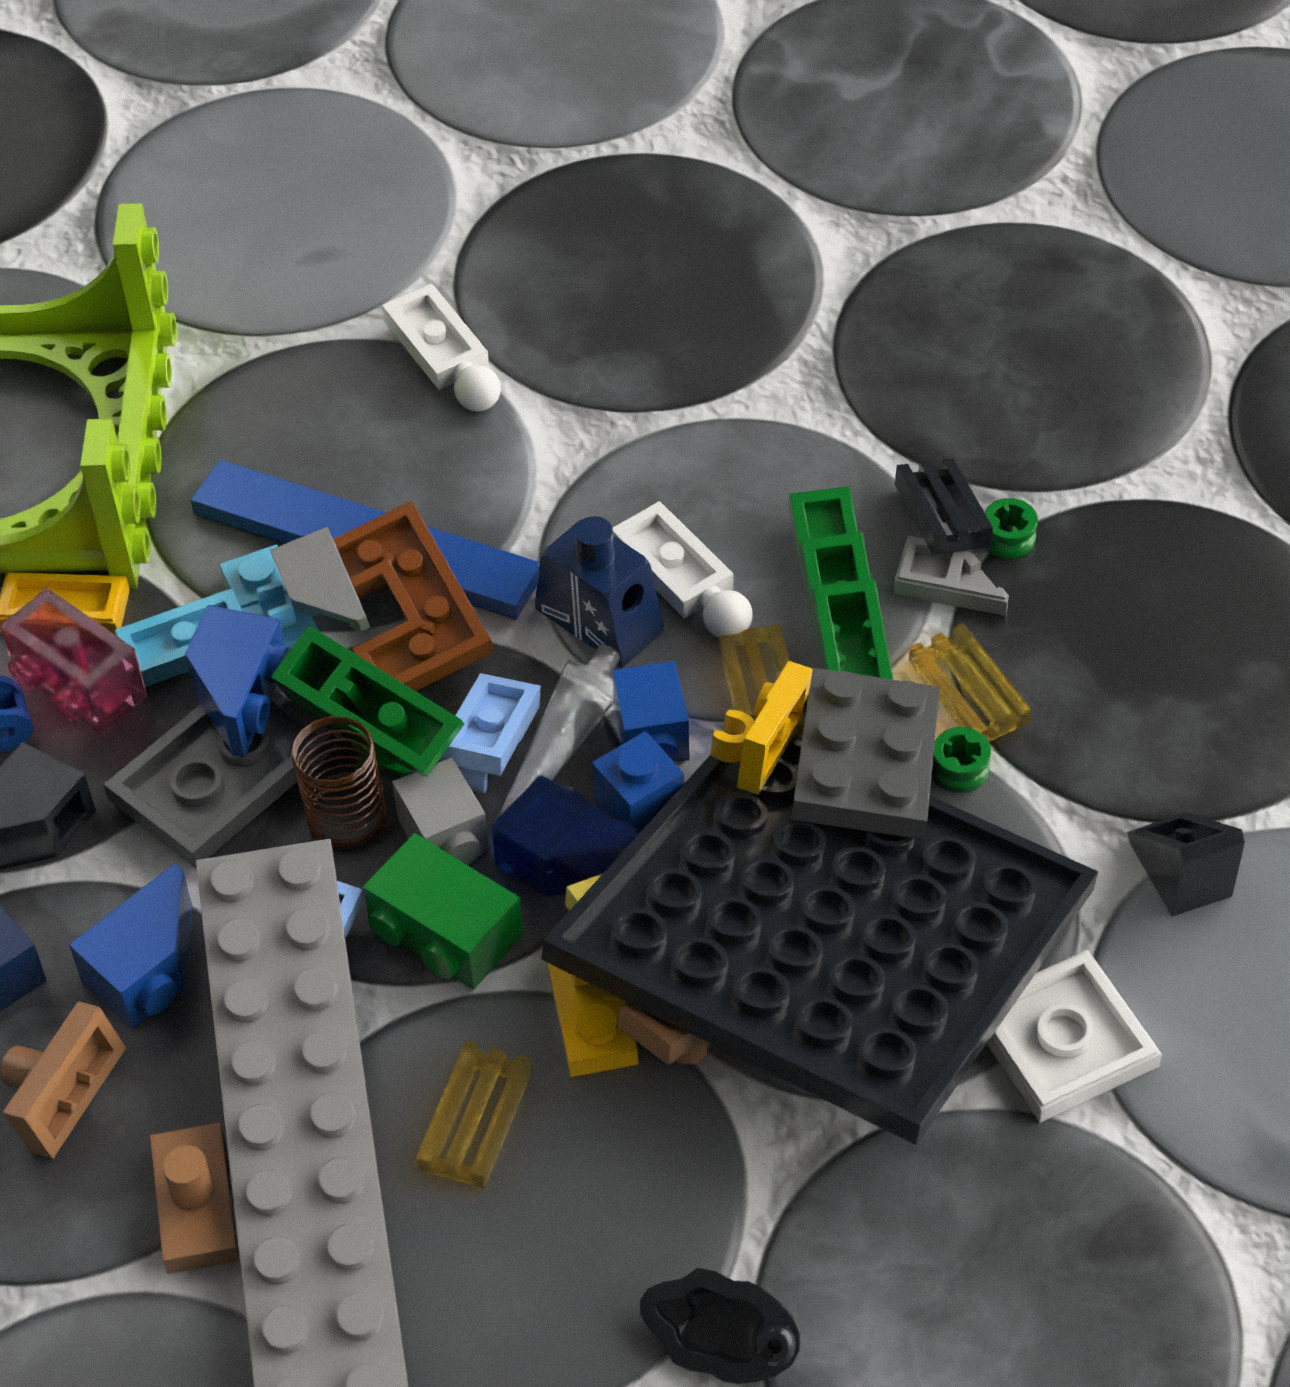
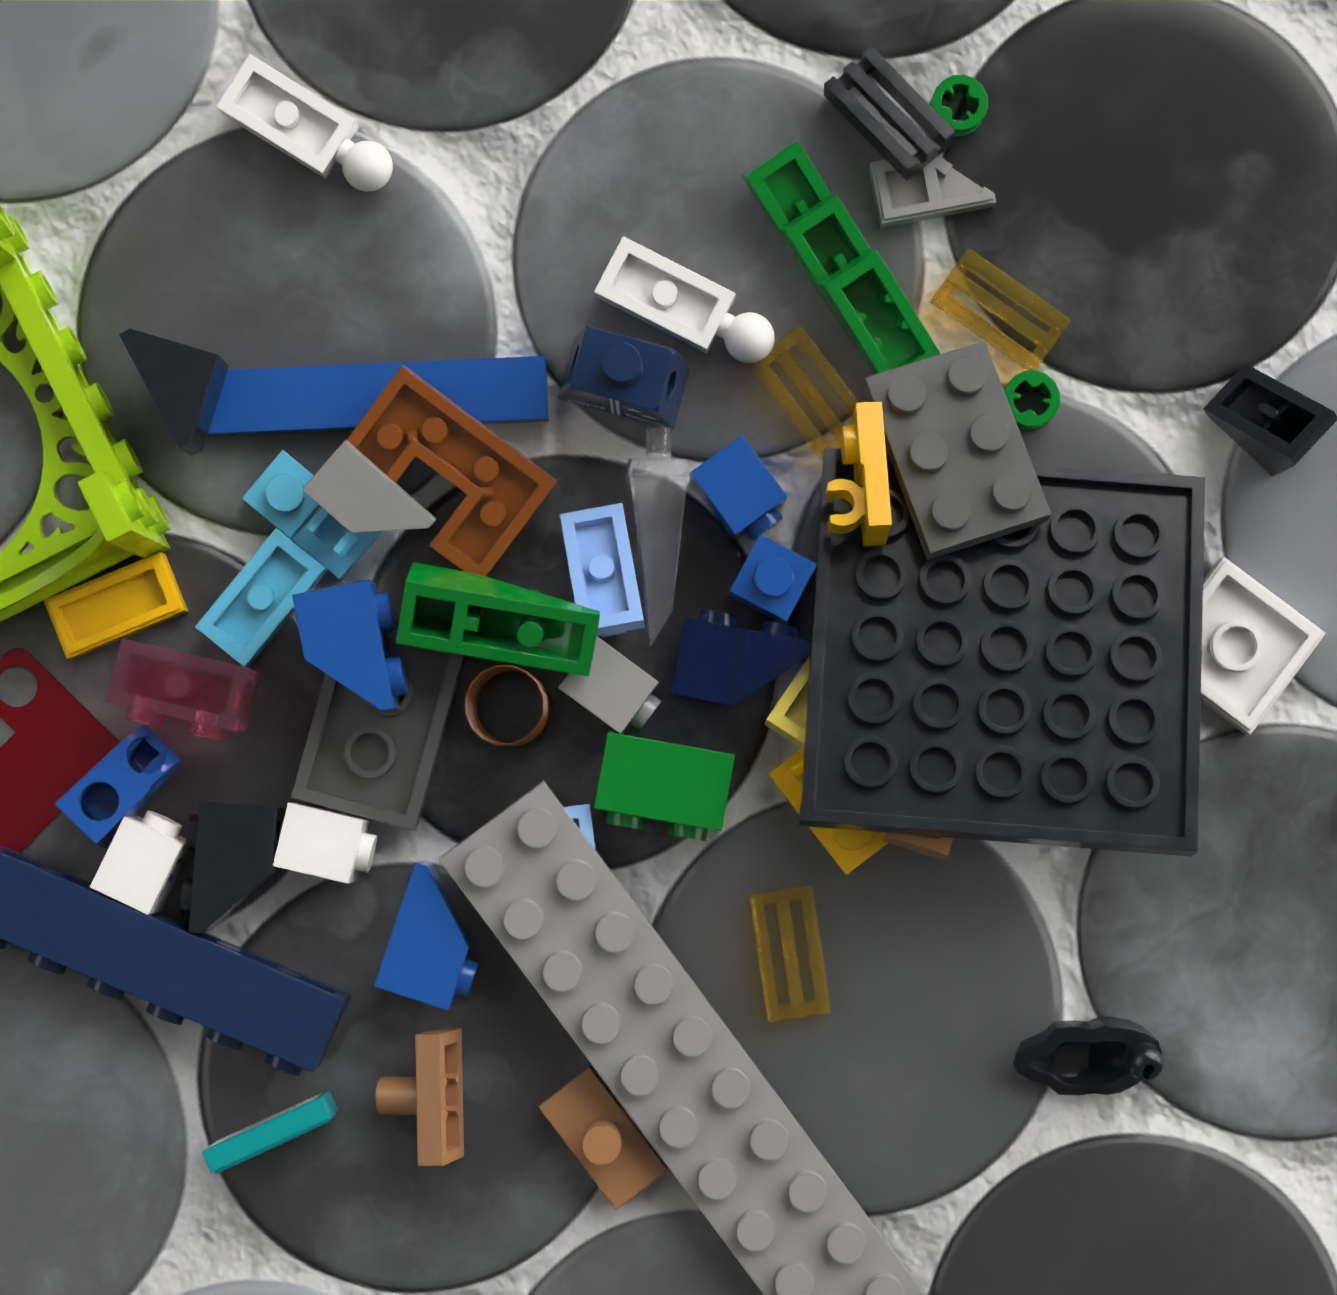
camera: 30 degrees left, 35 degrees up
(106, 832) = (324, 843): none -> white brick
(227, 456) = (181, 382): none -> black slope

